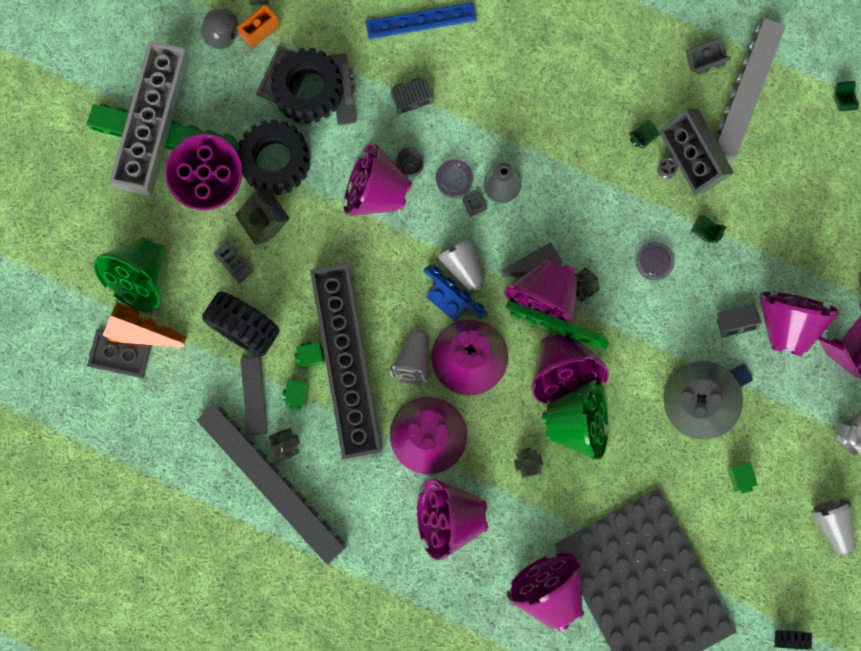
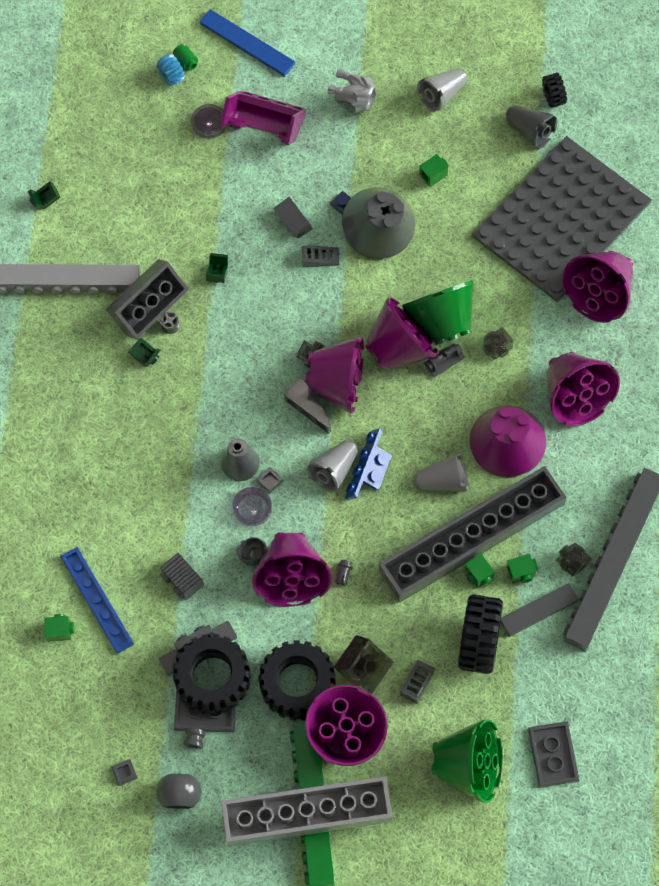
camera: 110 degrees left, 10 degrees down
(128, 327) = (526, 748): wedge -> none
(258, 26) = (163, 752): orange brick -> none
(261, 58) = (194, 738): none -> dark grey wheel
(359, 236) = (343, 571): none -> dark grey pin
(473, 372) = (419, 431): magenta cone -> none
(532, 408) = (444, 360): none -> dark grey hinge
(560, 326) = (366, 347): green plate -> none
(655, 261) = (264, 305): clear purple piece -> none
(694, 316) = (312, 262): none -> dark grey slope
(707, 56) = (45, 323): dark grey bracket -> none
(760, 599) = (532, 124): none -> dark grey cone
(794, 322) = (276, 167): magenta cone -> none

